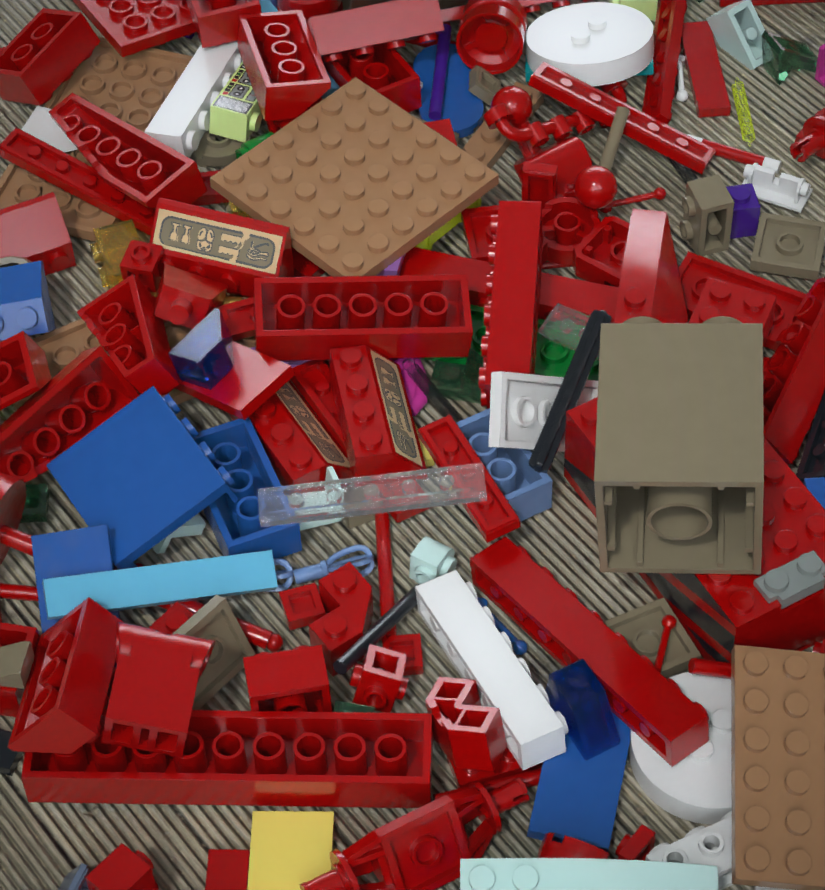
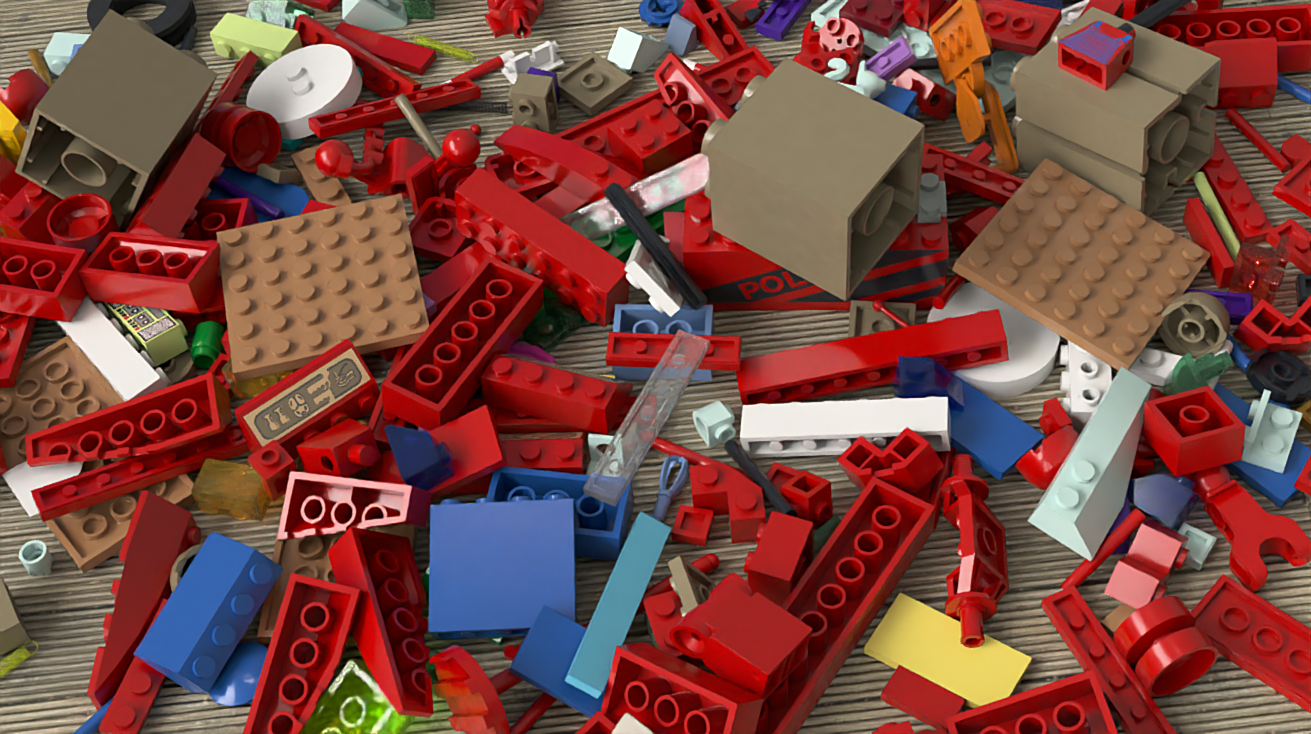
camera: 55 degrees left, 0 degrees up
(441, 409) = (560, 345): black piece -> none

